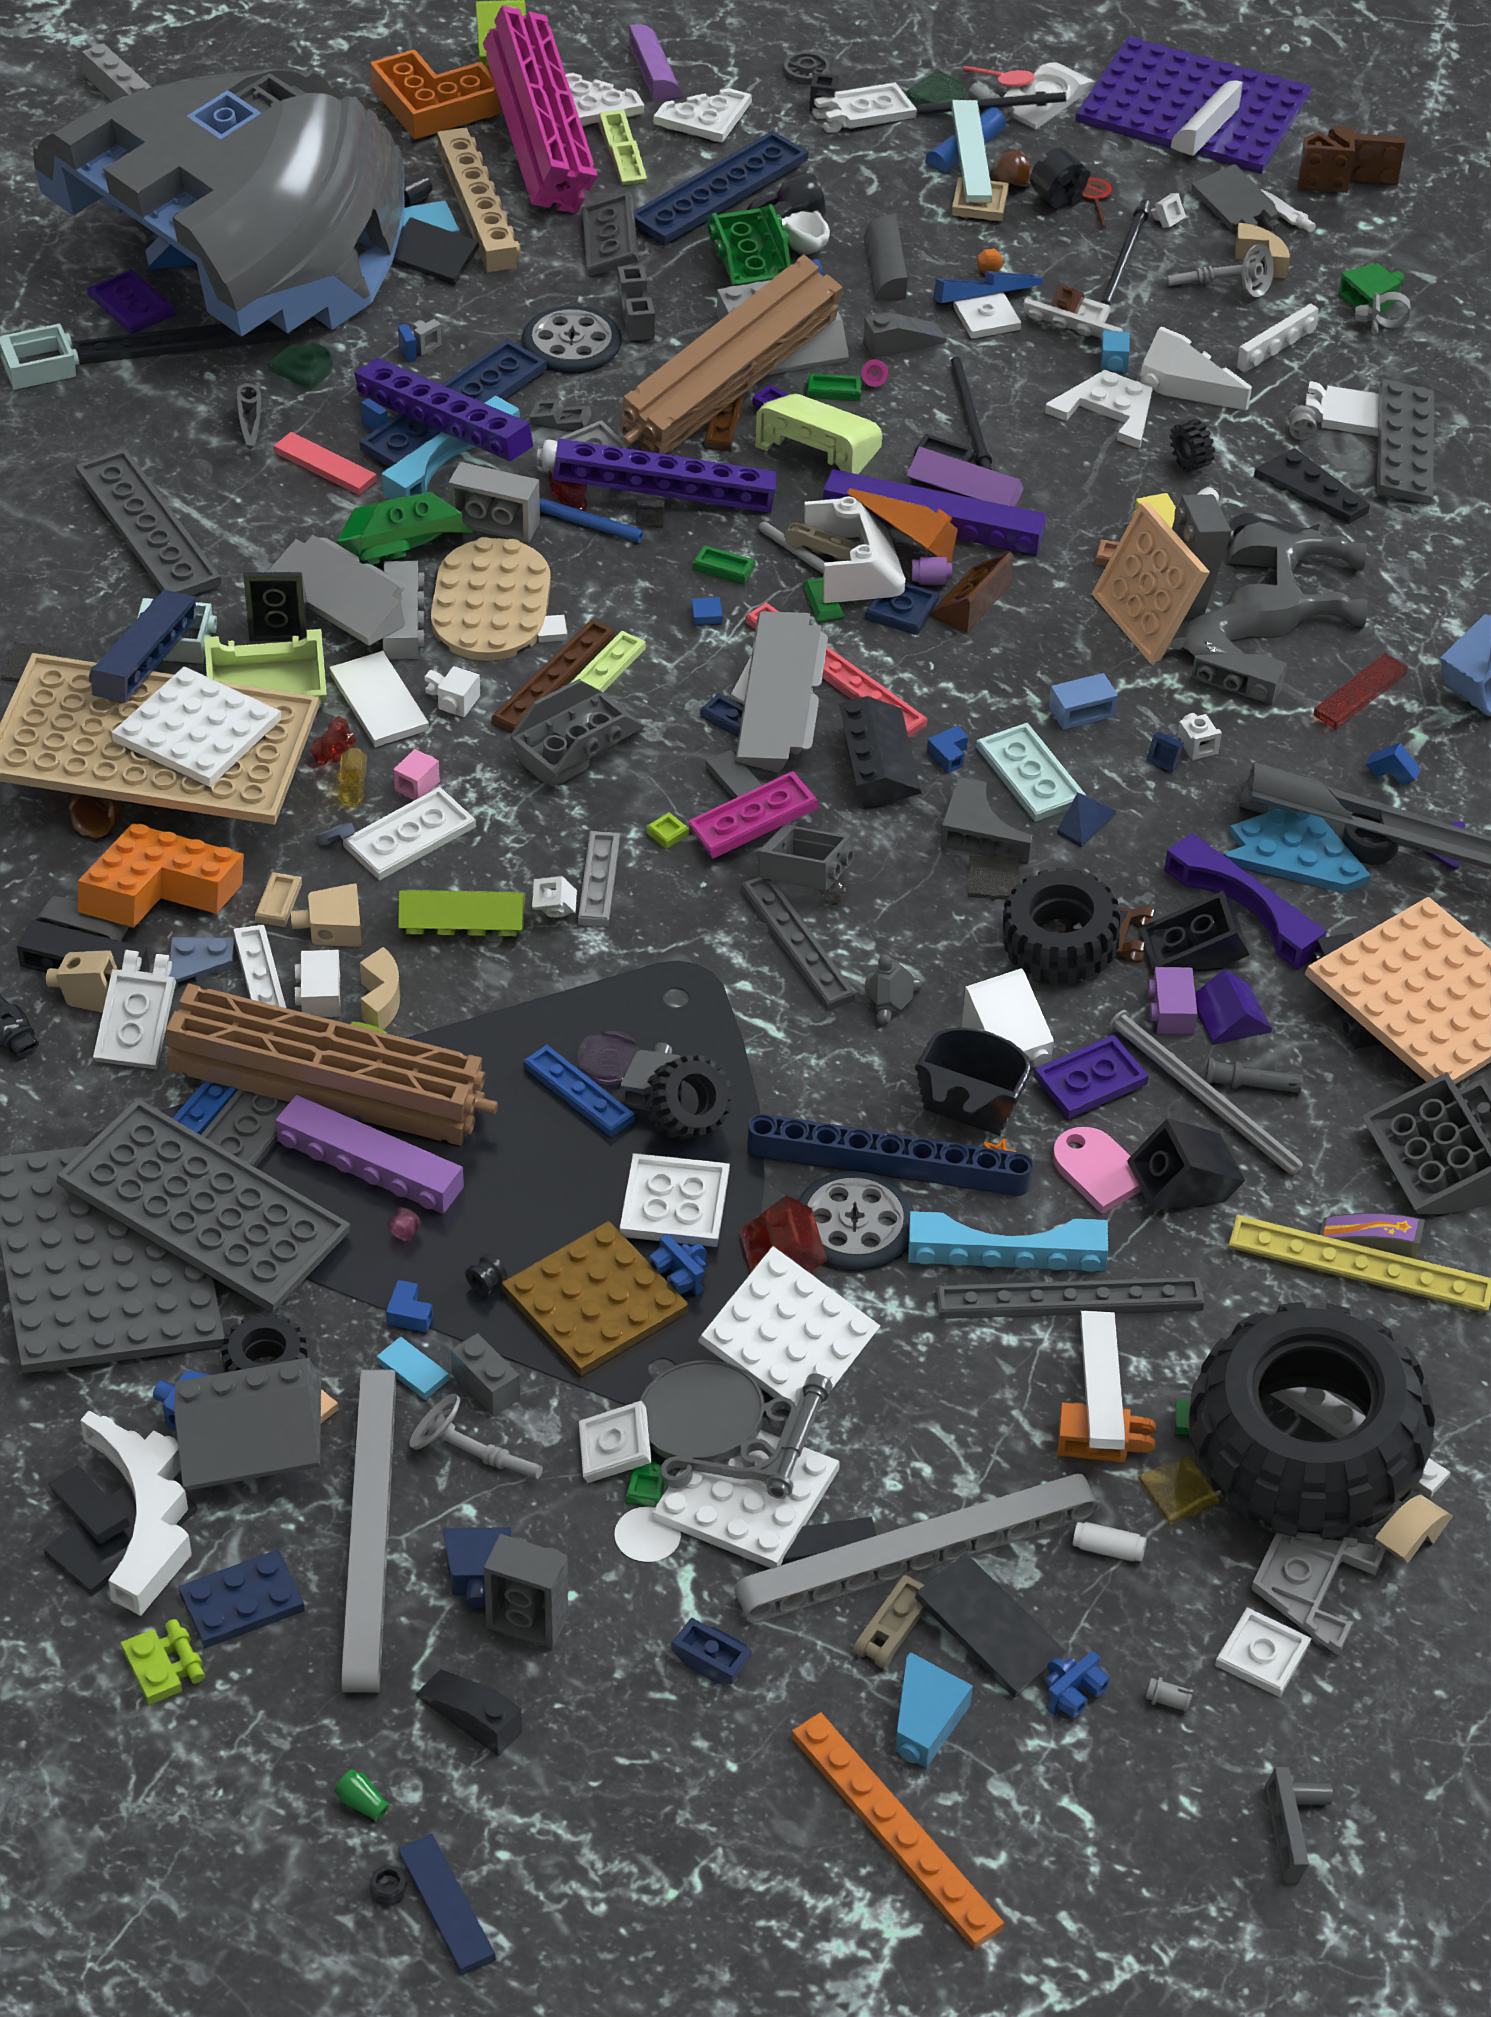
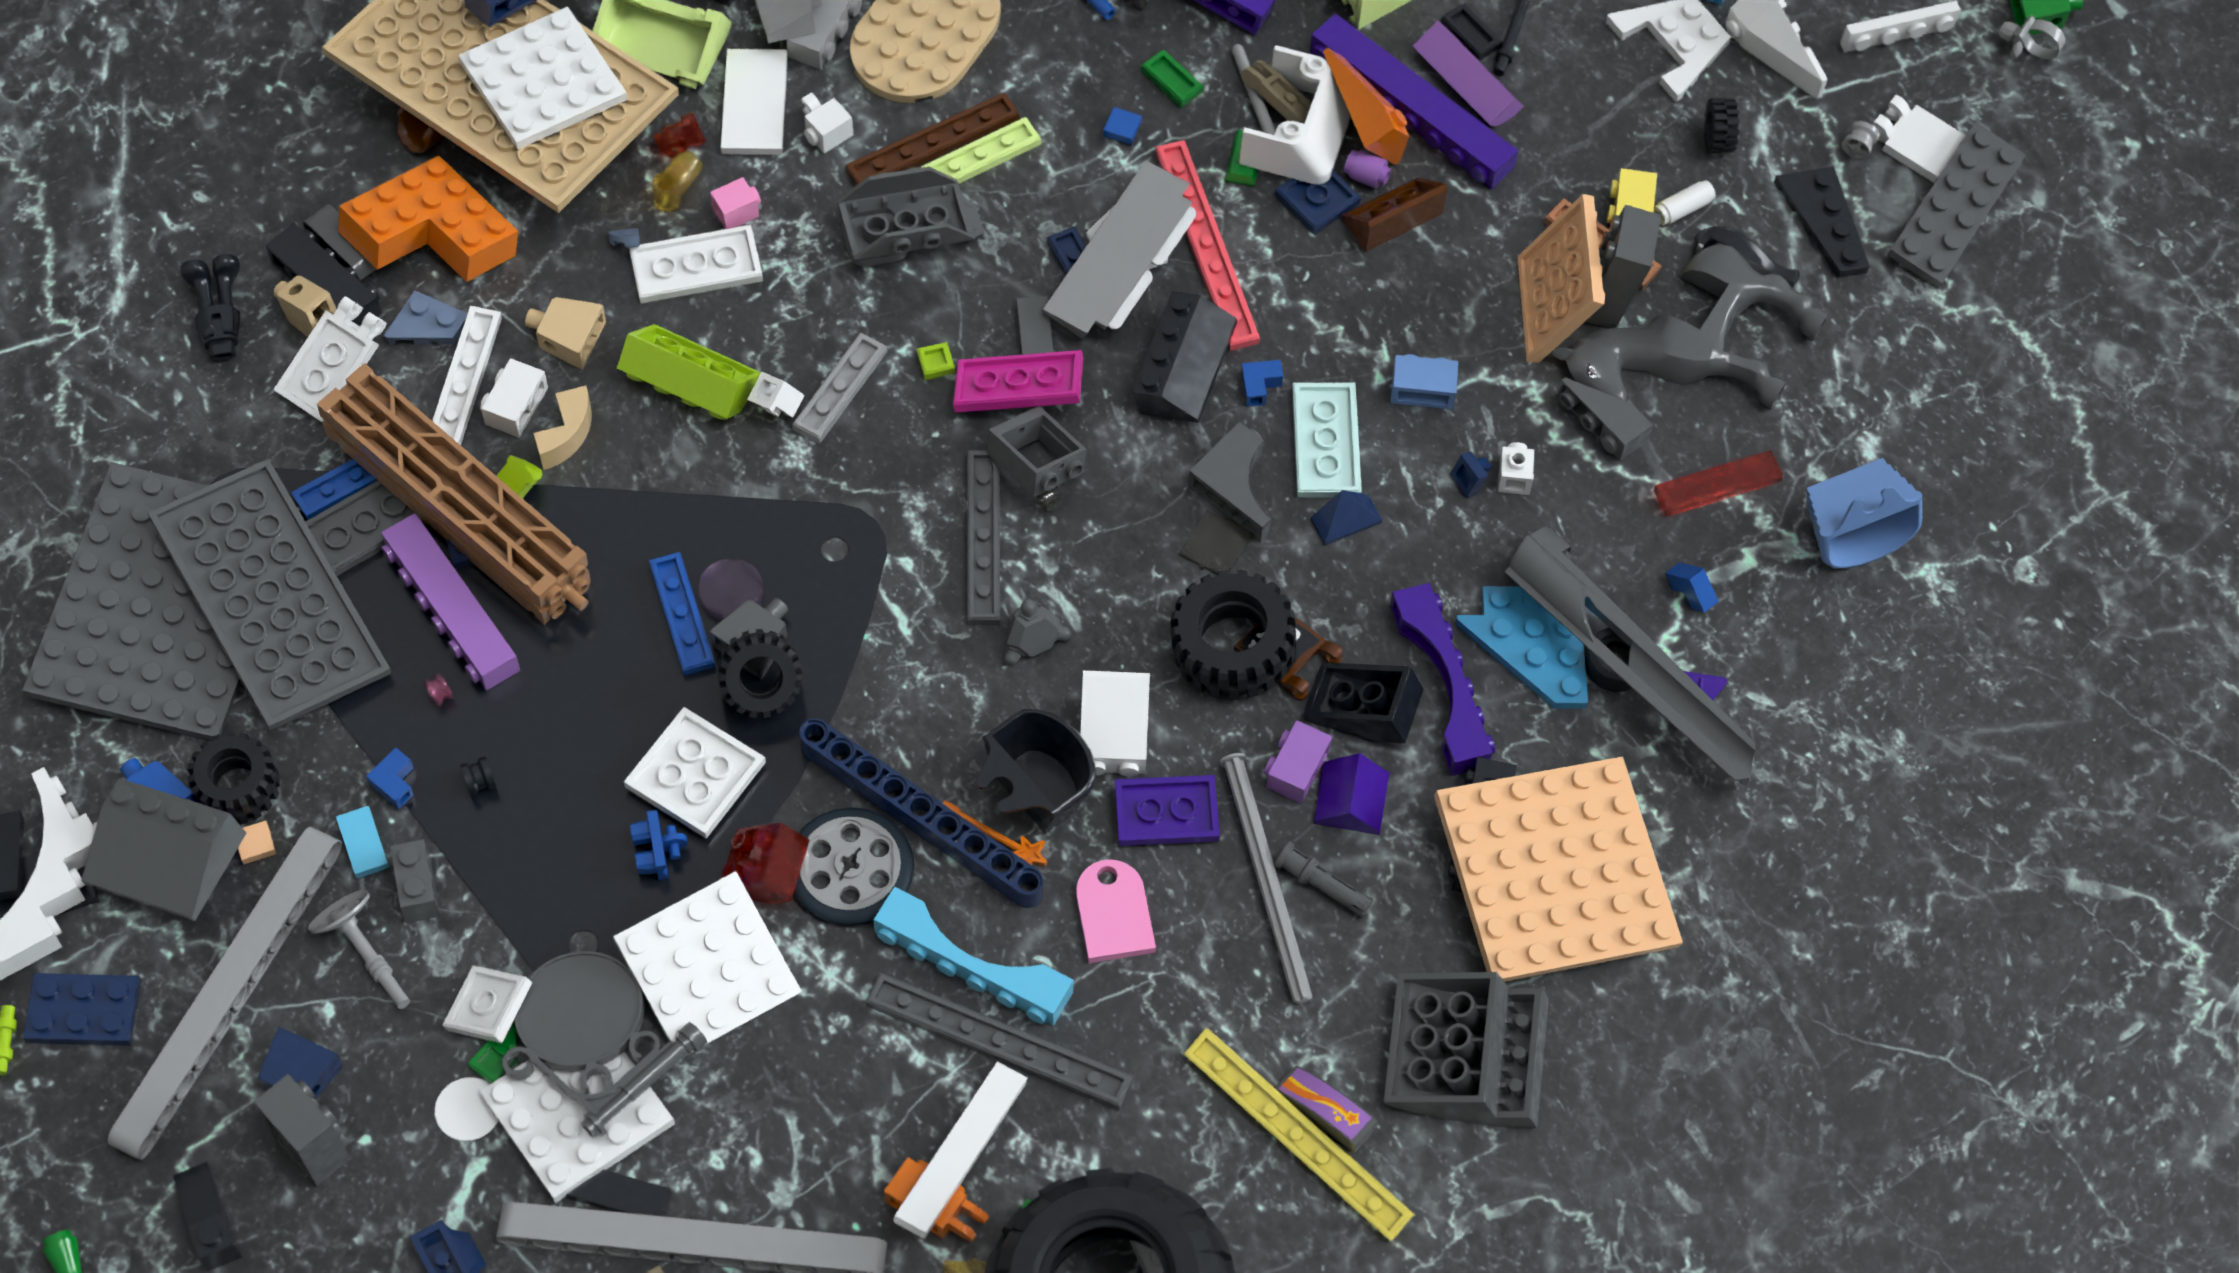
camera: 25 degrees right, 15 degrees up
(278, 899) = (535, 286): tan tile -> none
(553, 629) = (964, 88): white tile -> none
(595, 1298) = (564, 842): pearl gold plate -> none
(1184, 1167) = (1188, 955): black slope -> none

